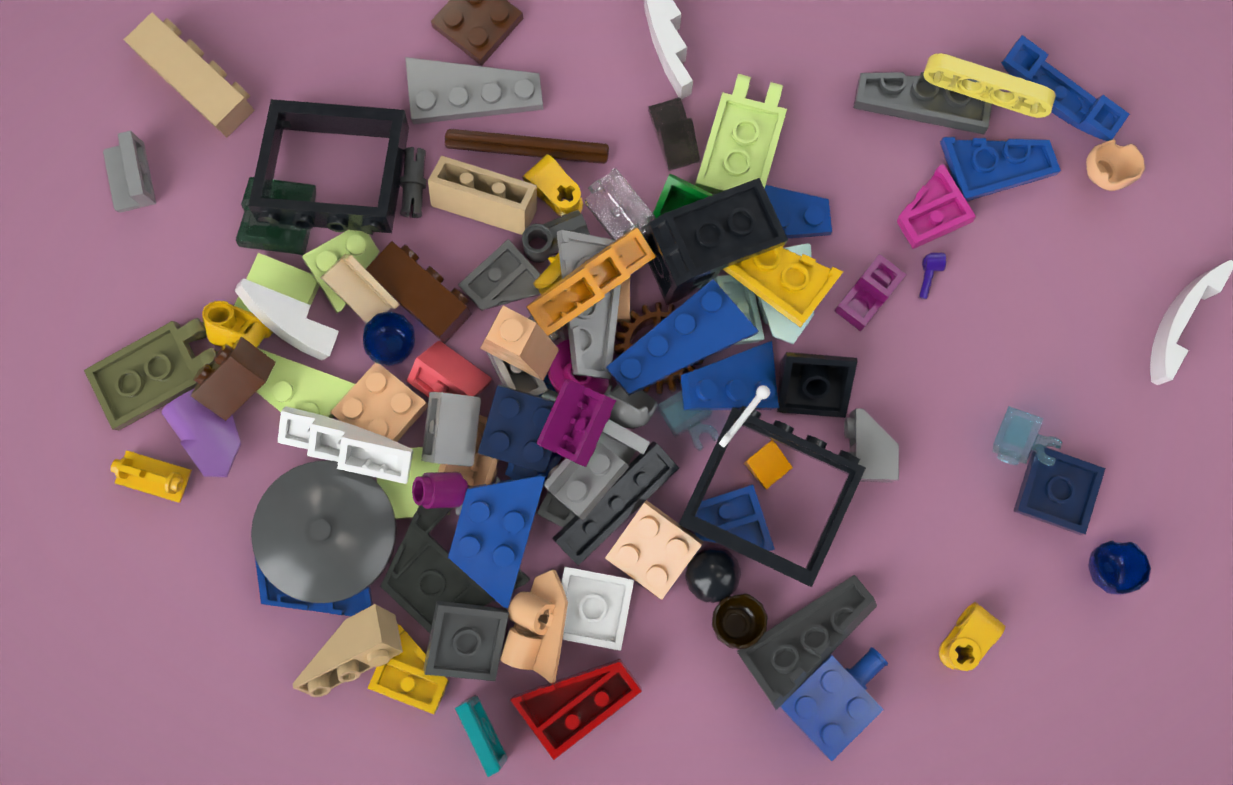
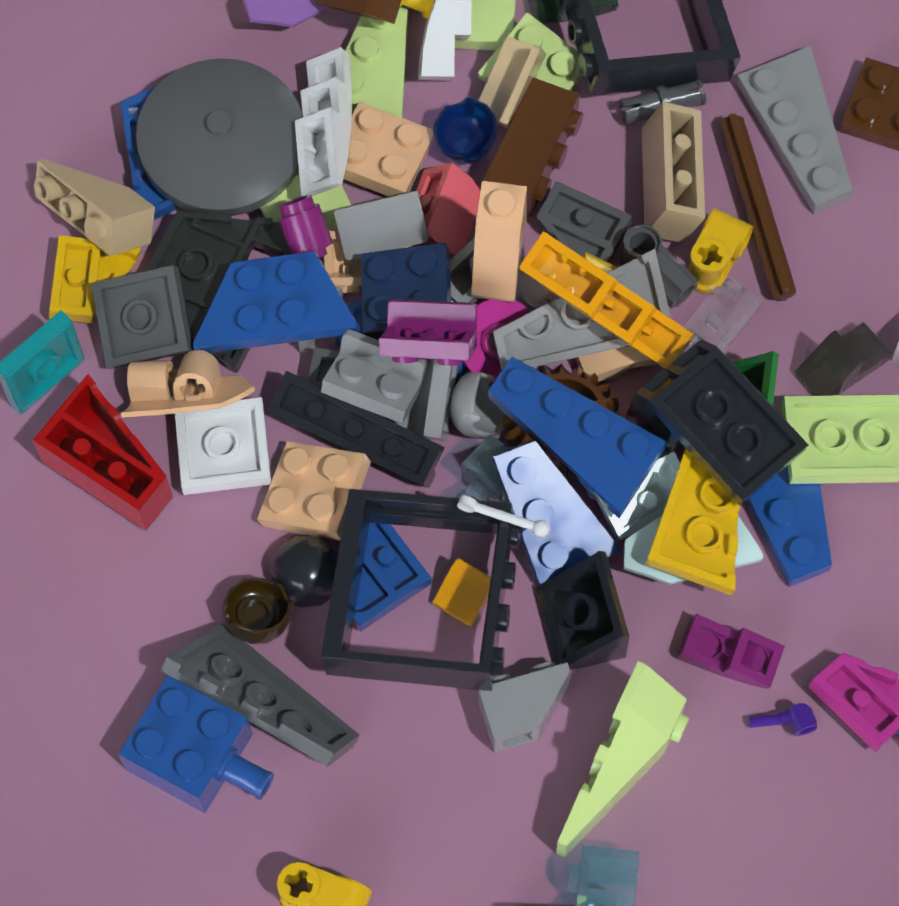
camera: 70 degrees right, 15 degrees down
(923, 384) = (640, 733): none -> yellowish green wedge

